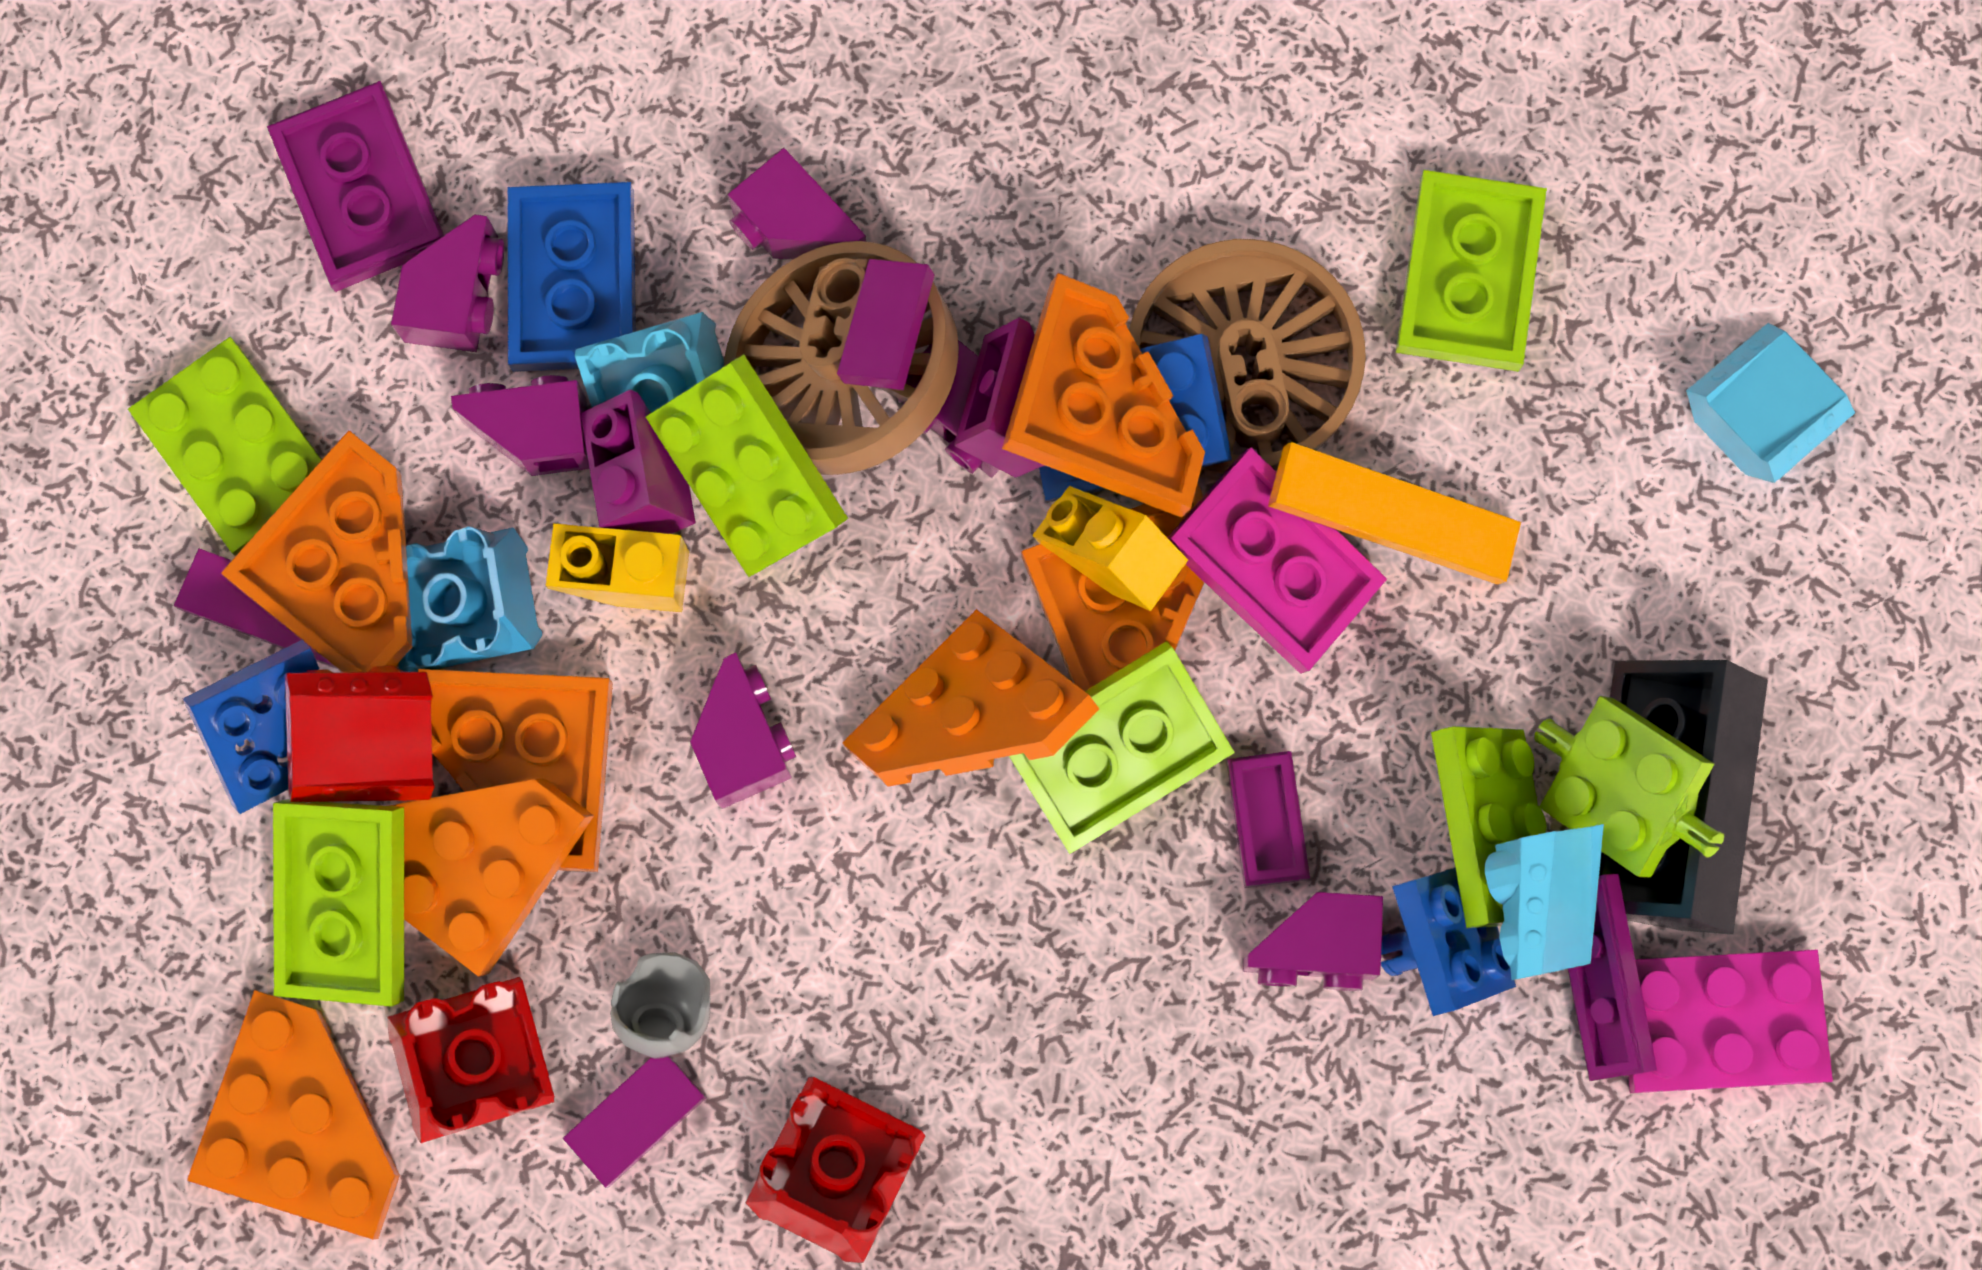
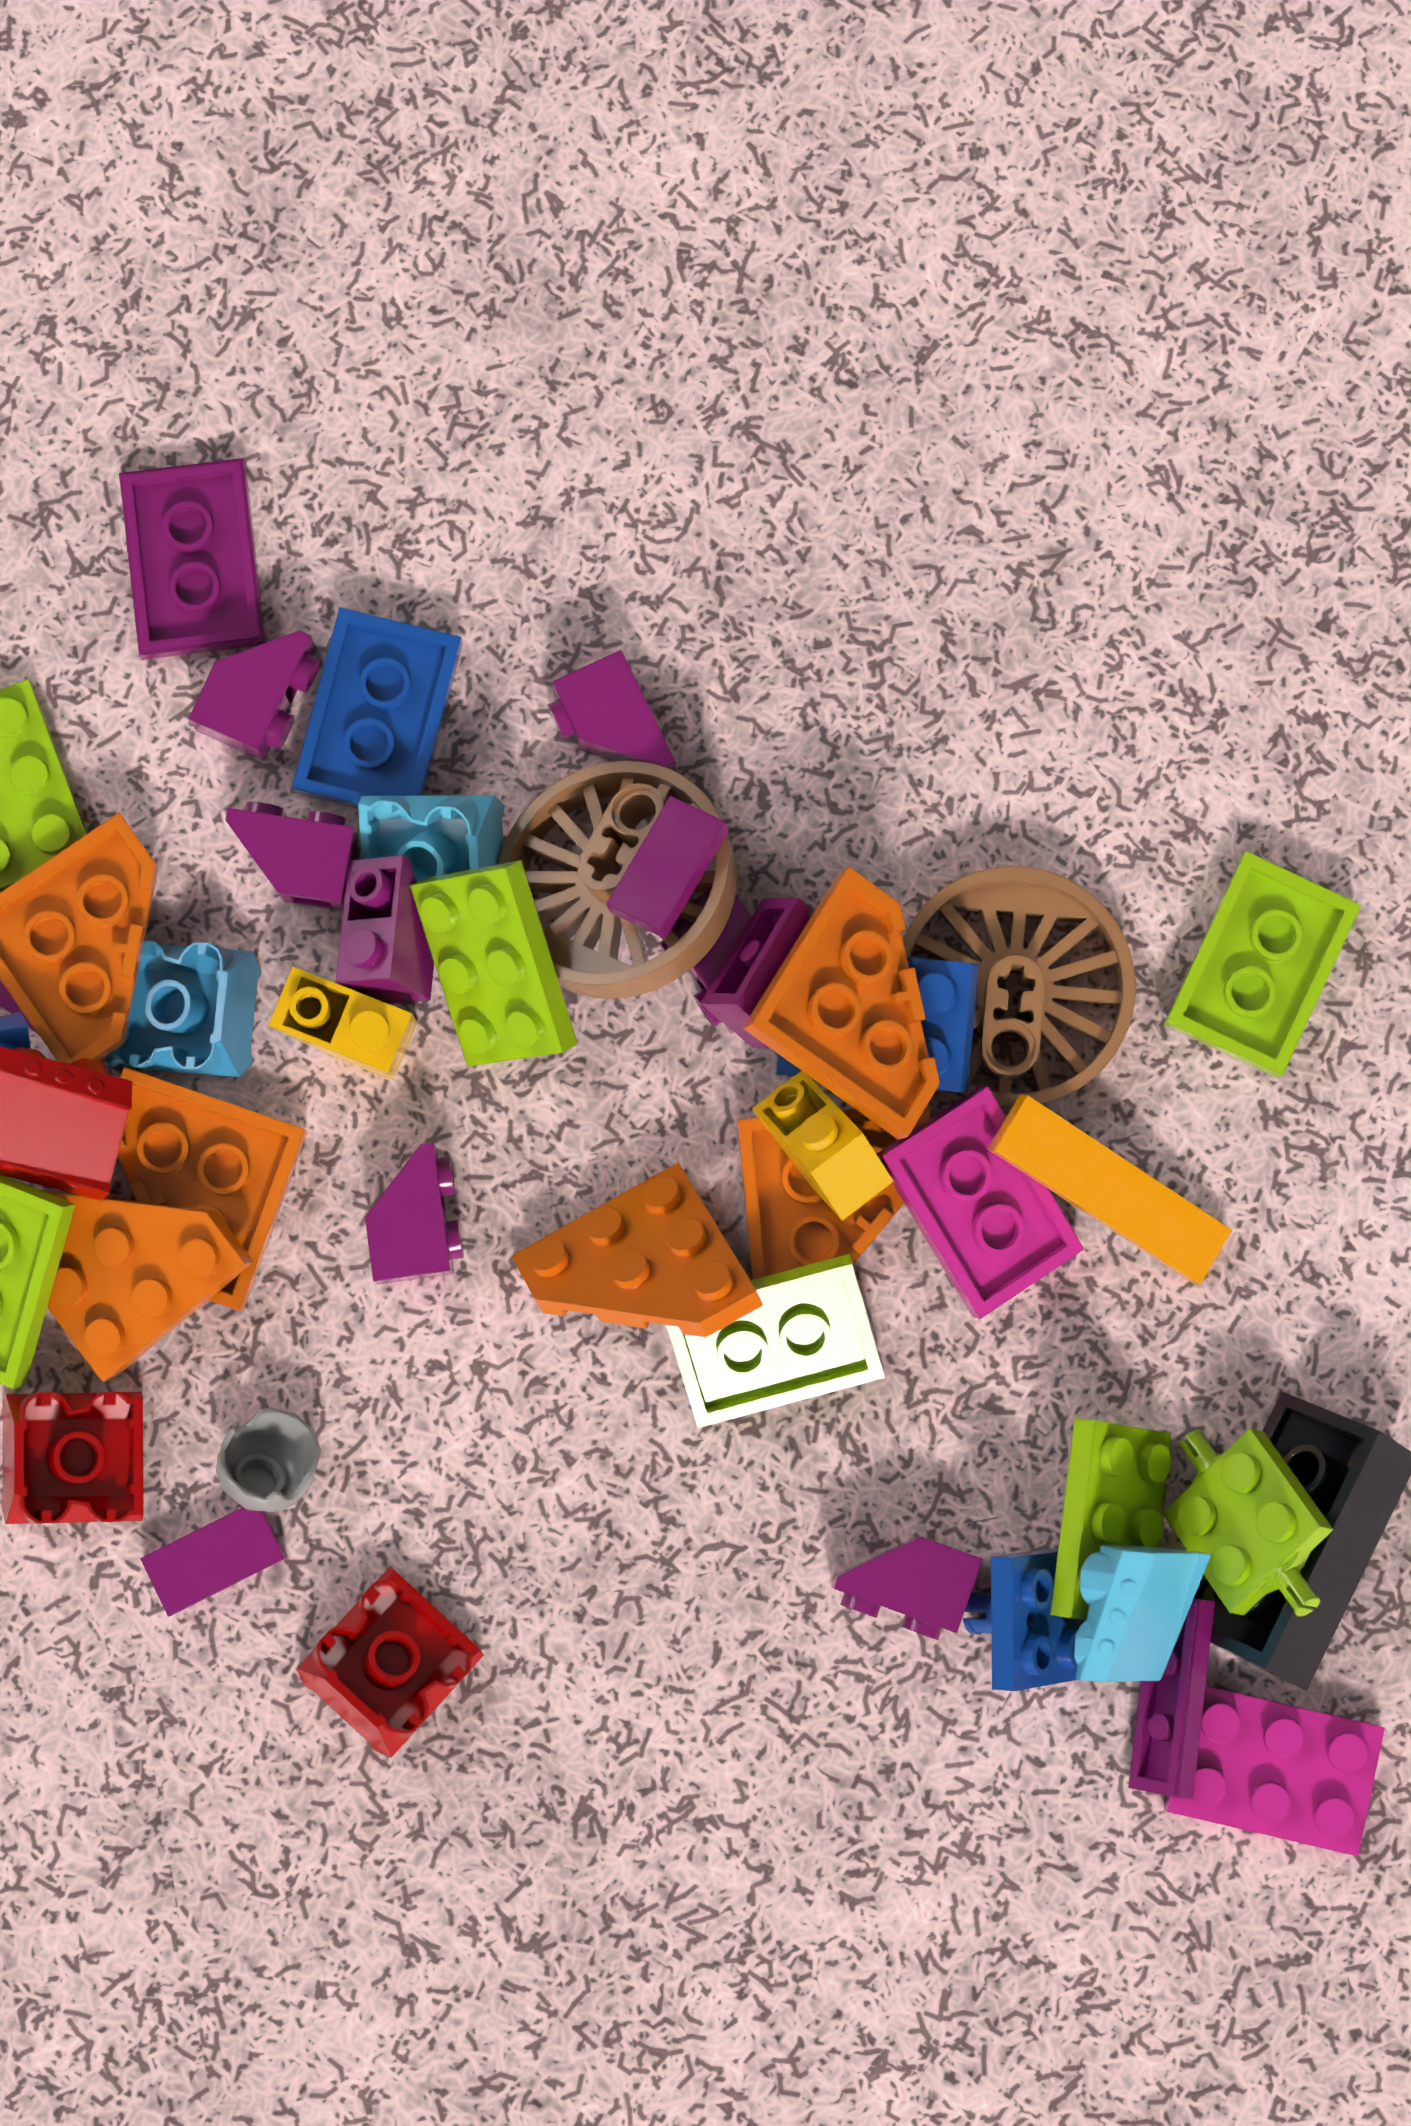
camera: 10 degrees right, 5 degrees up
(1268, 819) = (898, 1448): magenta tile -> none

